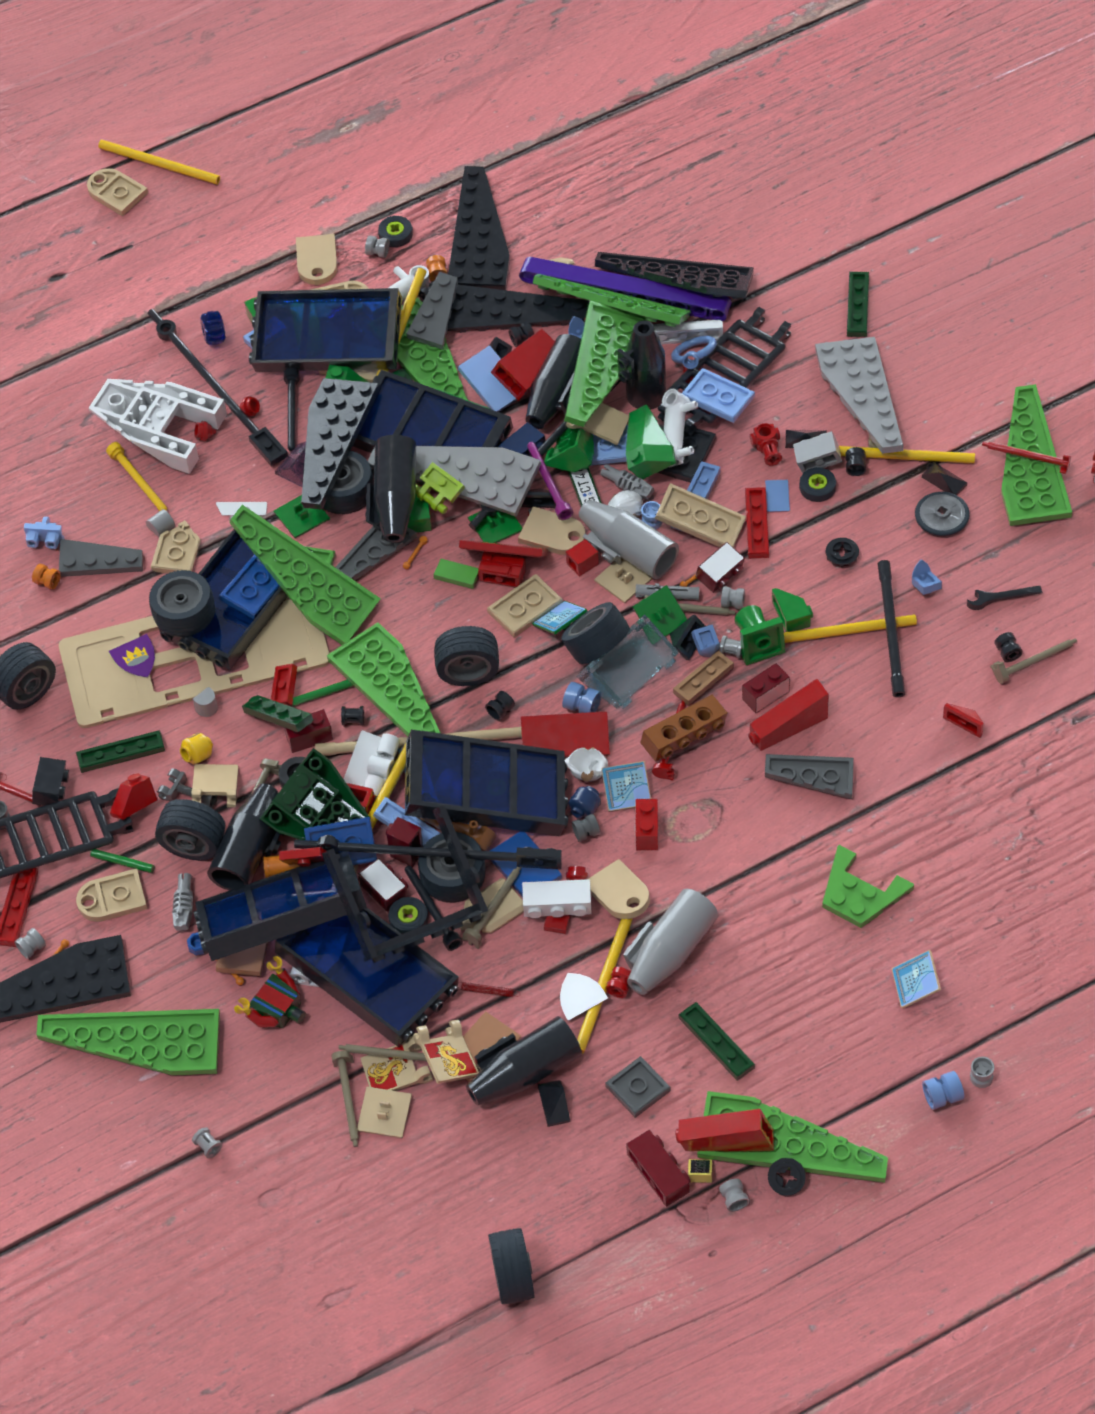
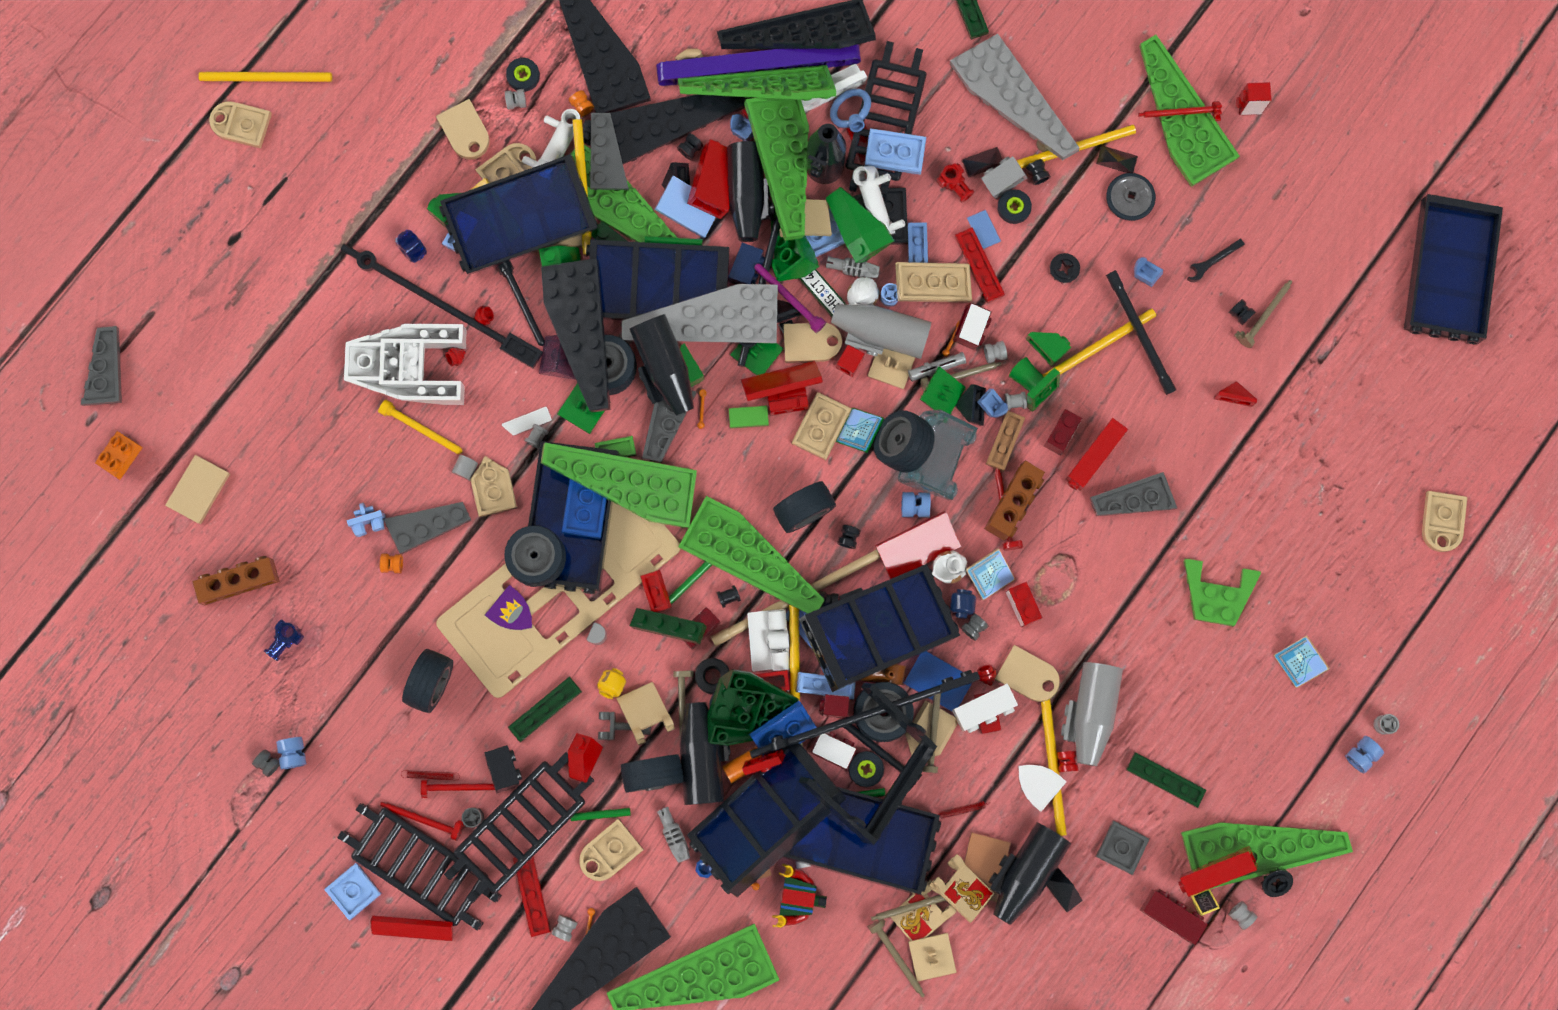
camera: 30 degrees left, 25 degrees up
(442, 483) = (703, 341): lime plate -> none

